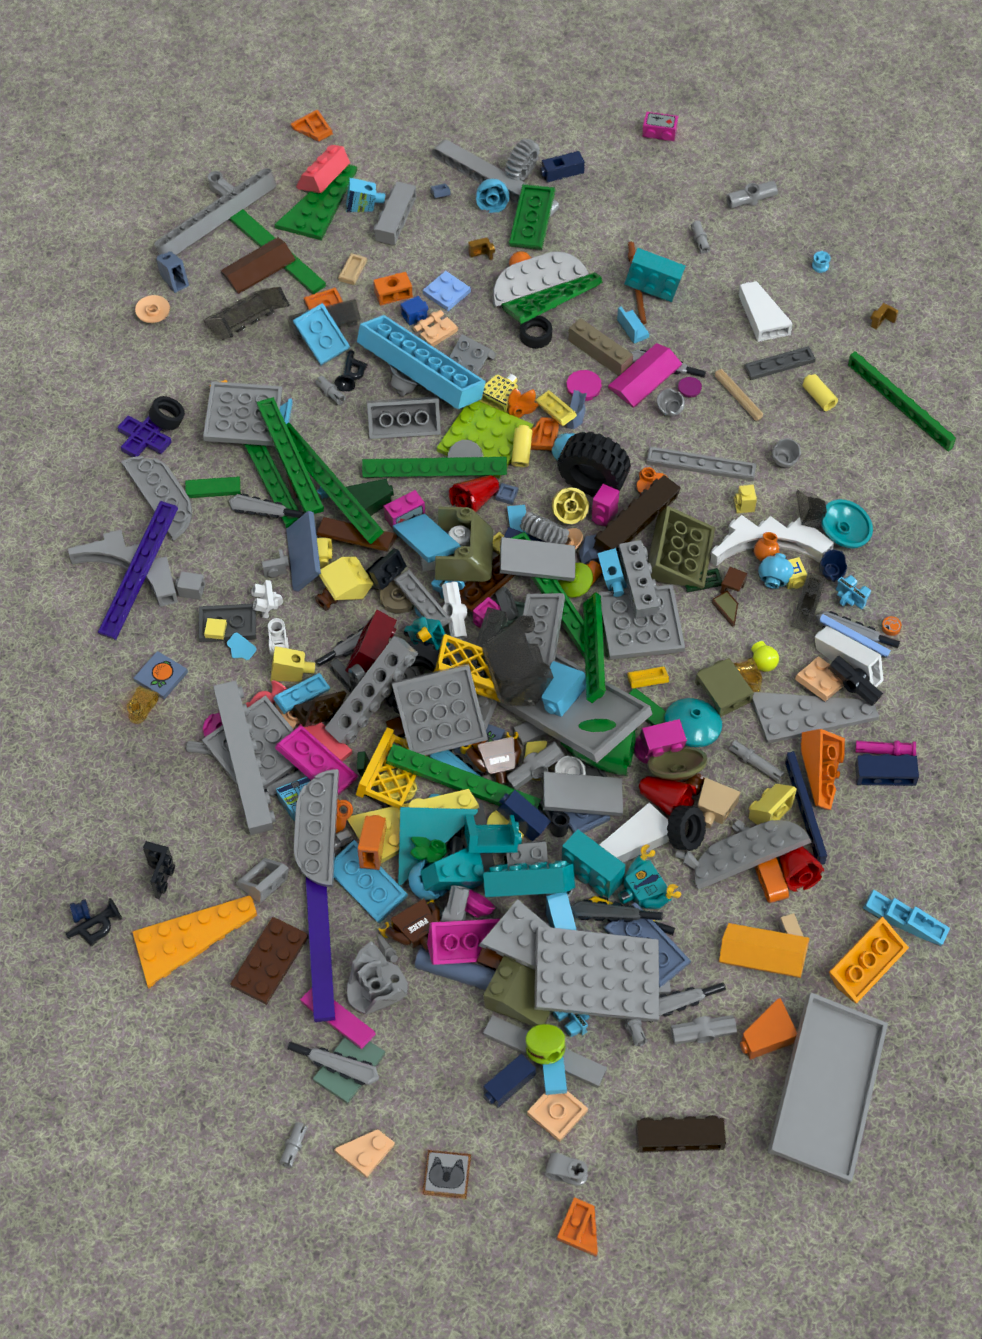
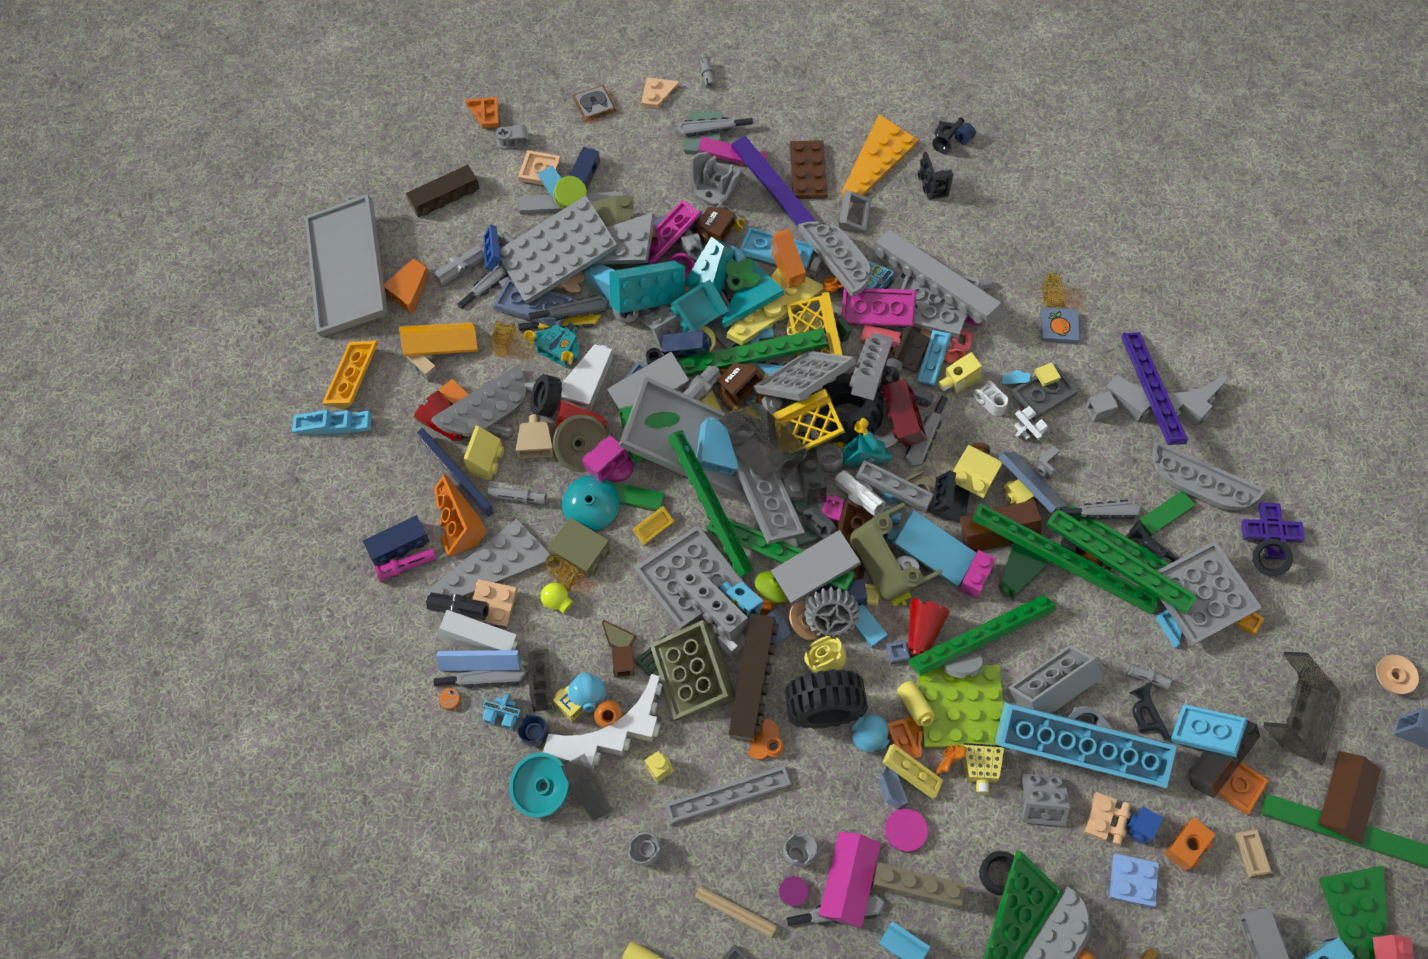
camera: 150 degrees right, 5 degrees up
(251, 482) = (1151, 544): none -> black piece
(593, 864) = (607, 330): teal brick -> none
(605, 505) = (790, 669): dark pink brick -> none
(662, 1023) = (491, 248): none -> blue plate
(694, 925) = (502, 335): none -> clear yellow piece

